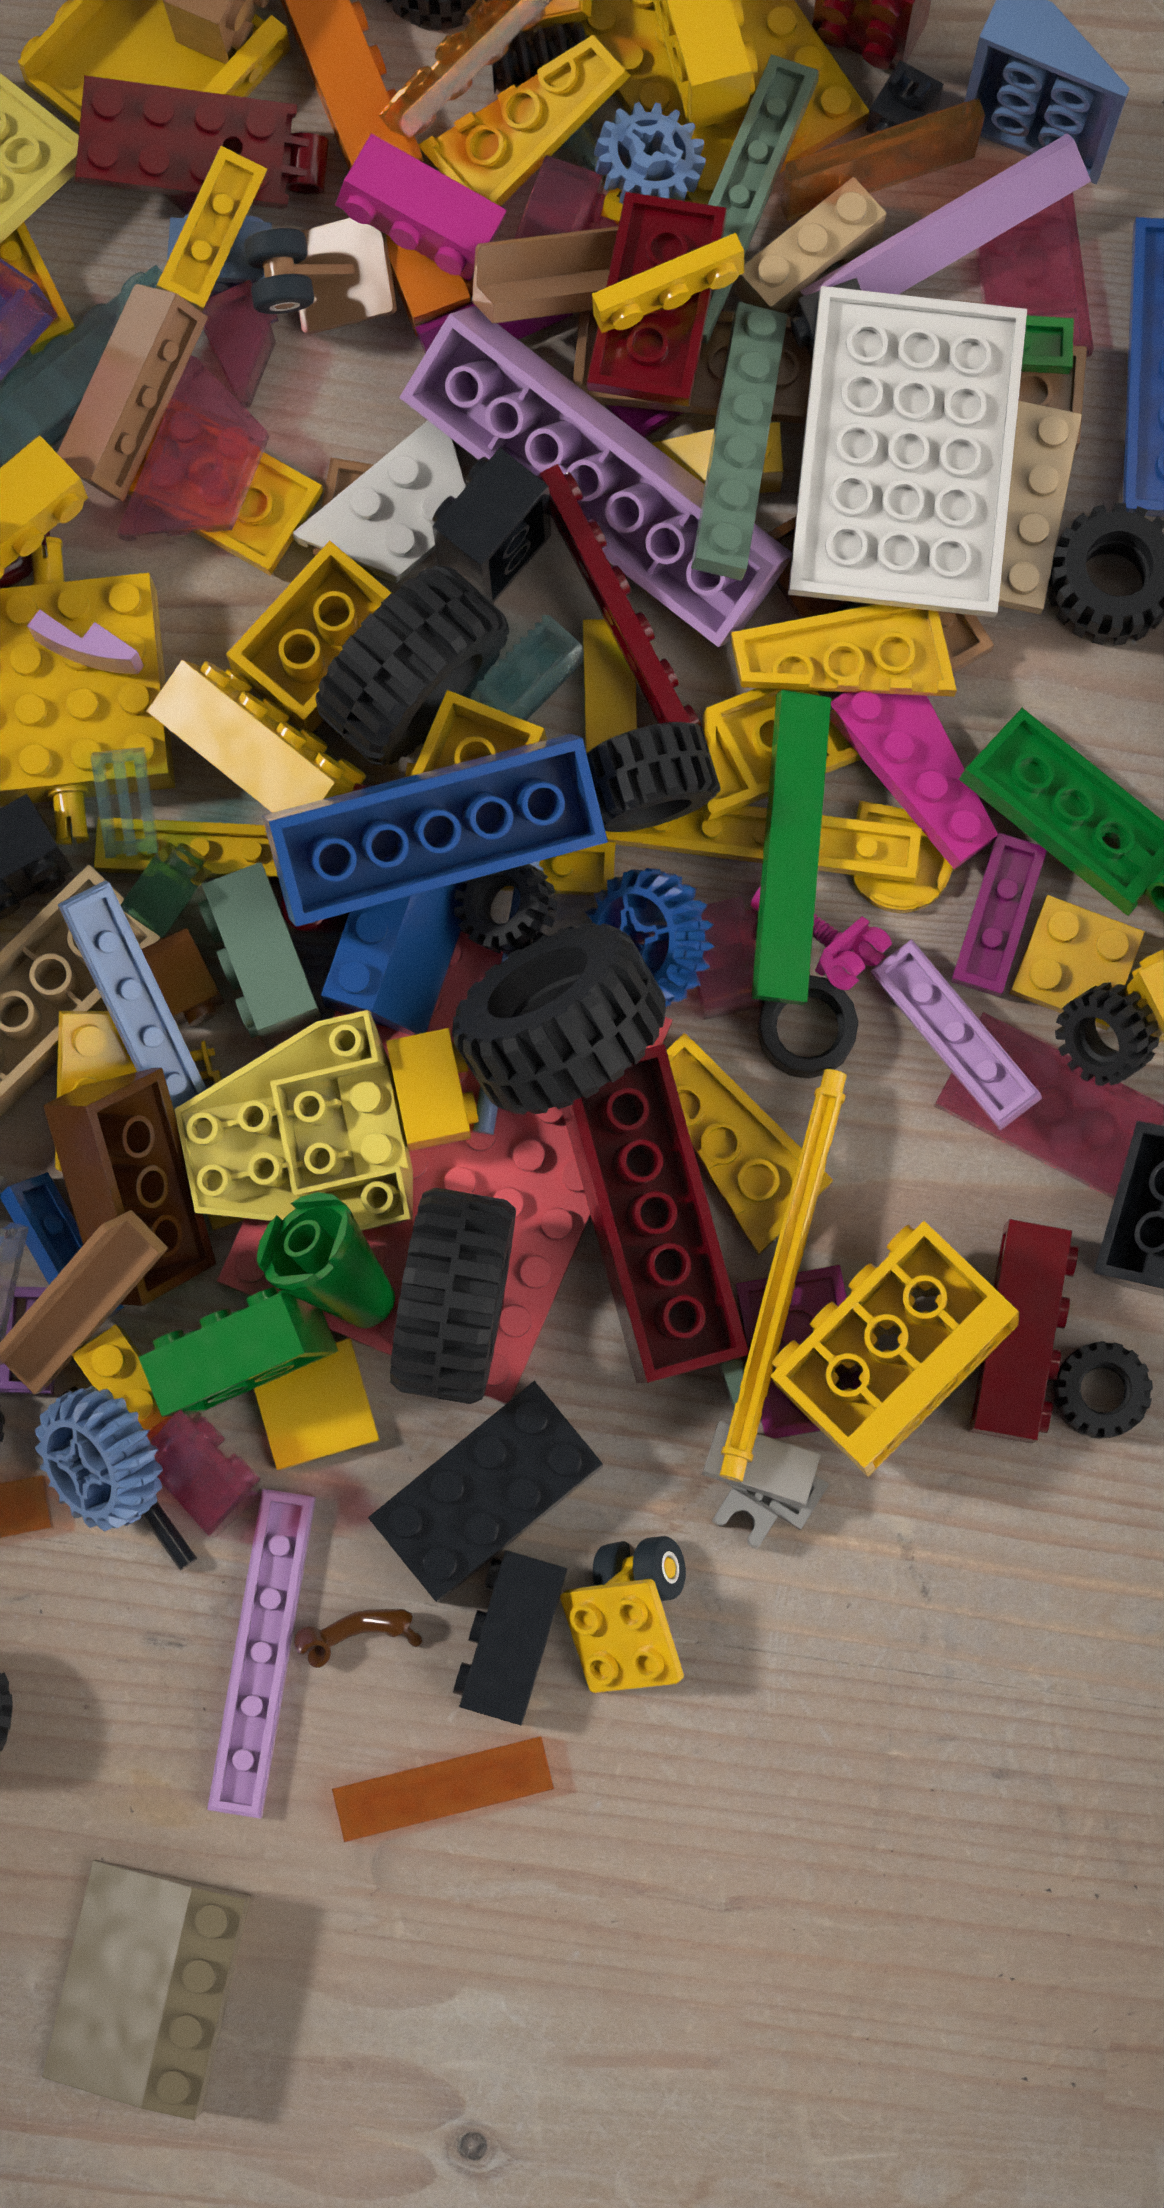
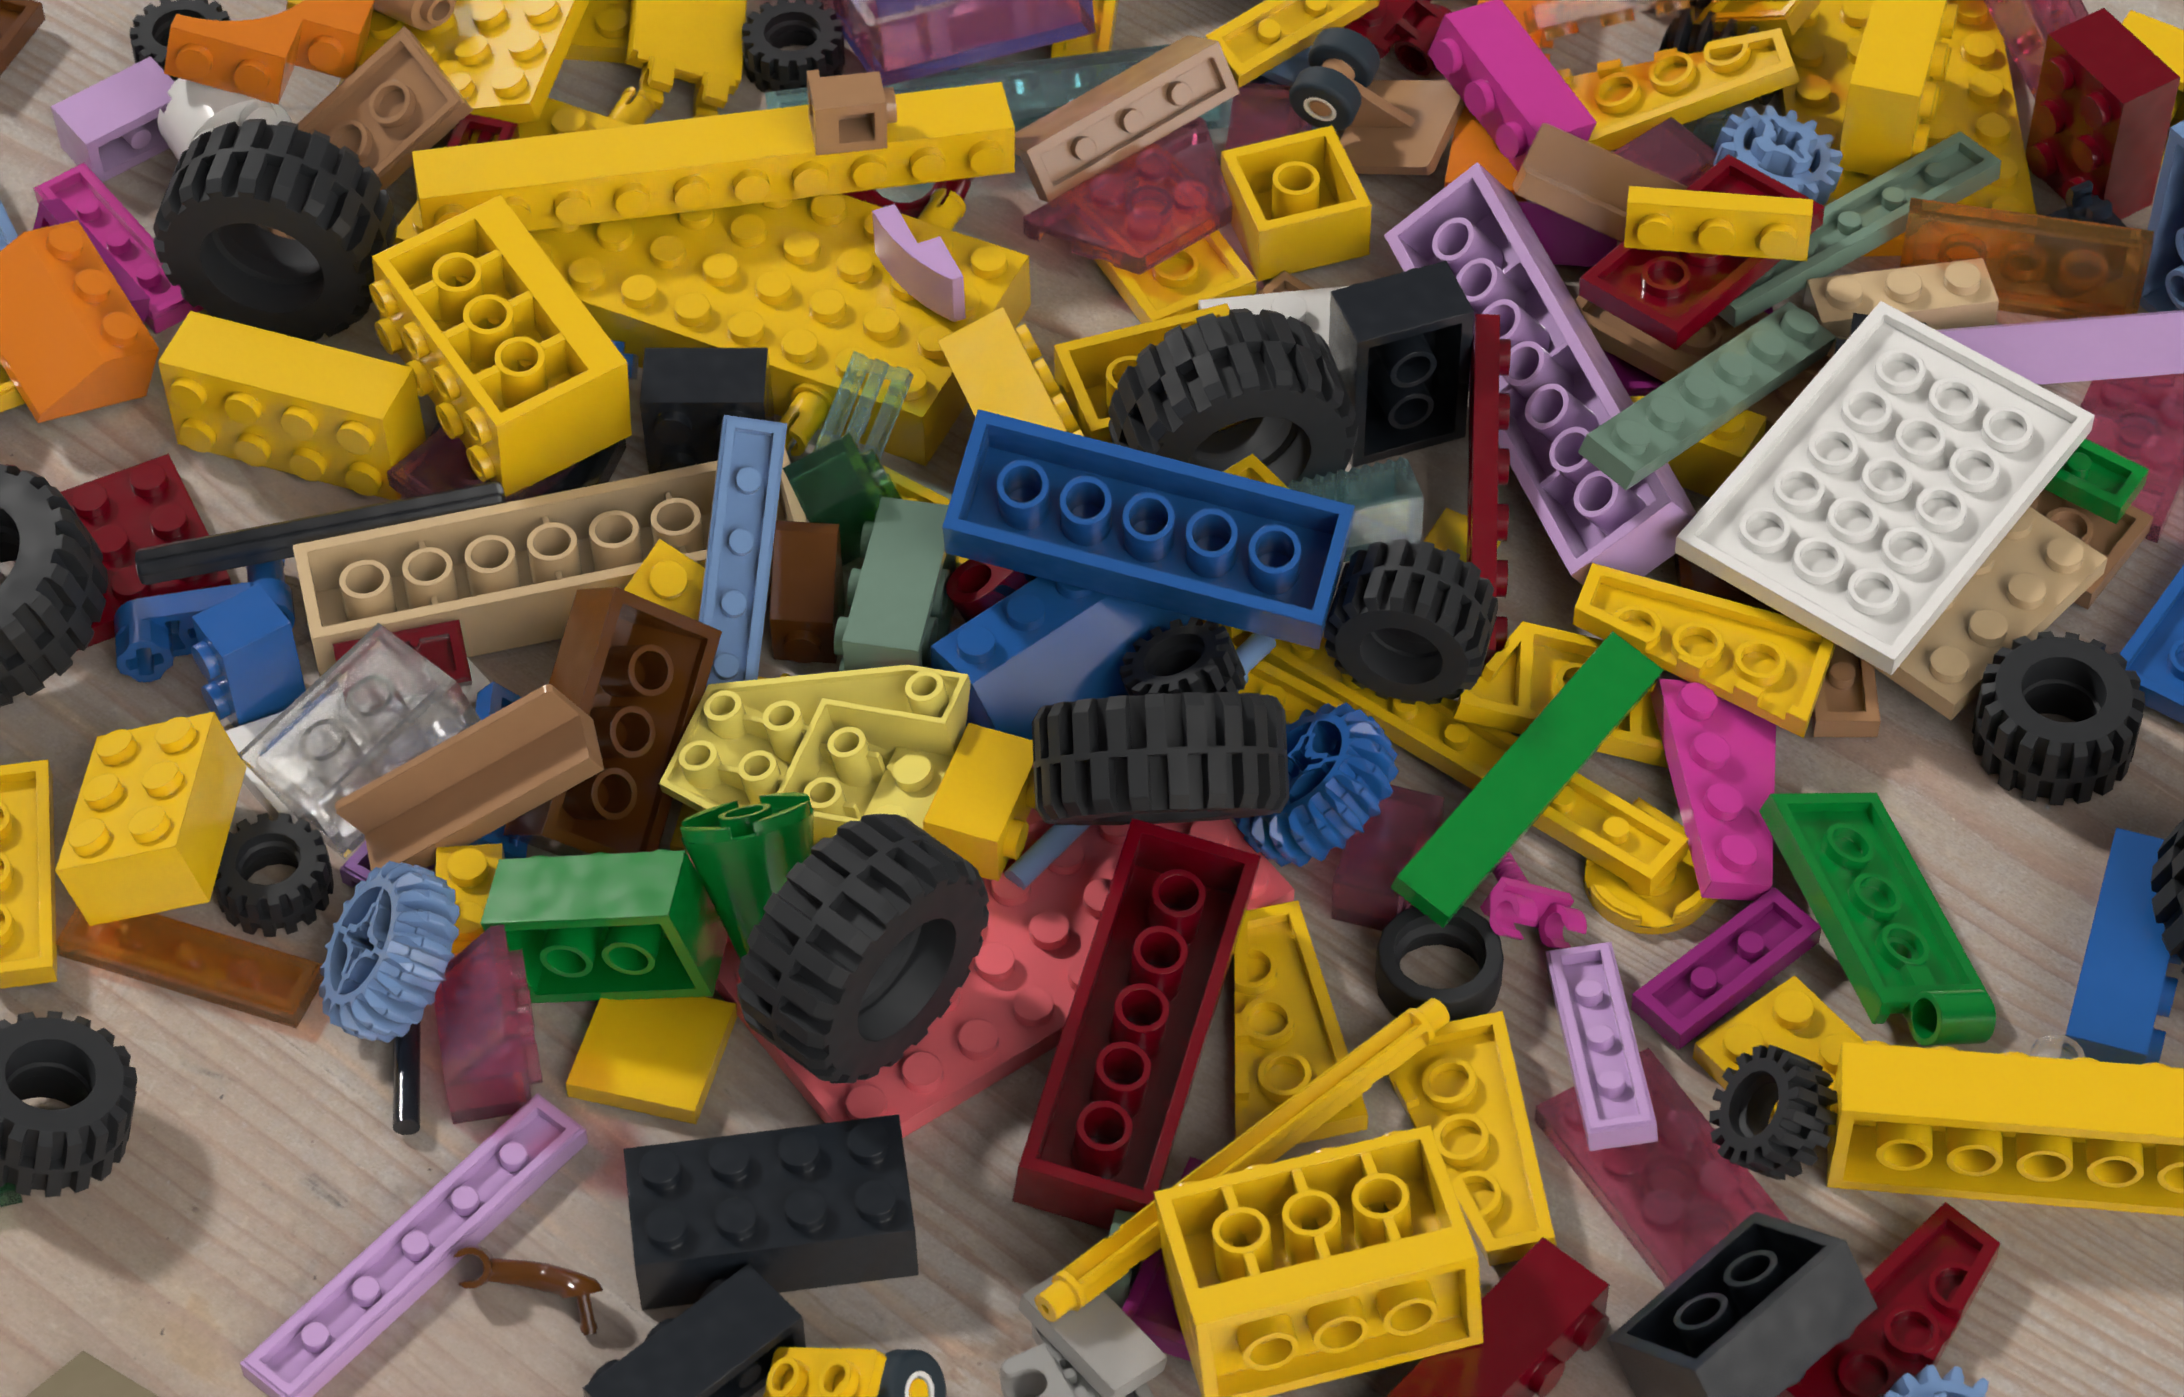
camera: 30 degrees right, 30 degrees down
(310, 396) = (1296, 203): none -> yellow brick
(908, 1146) = (1475, 1105): none -> yellow wing

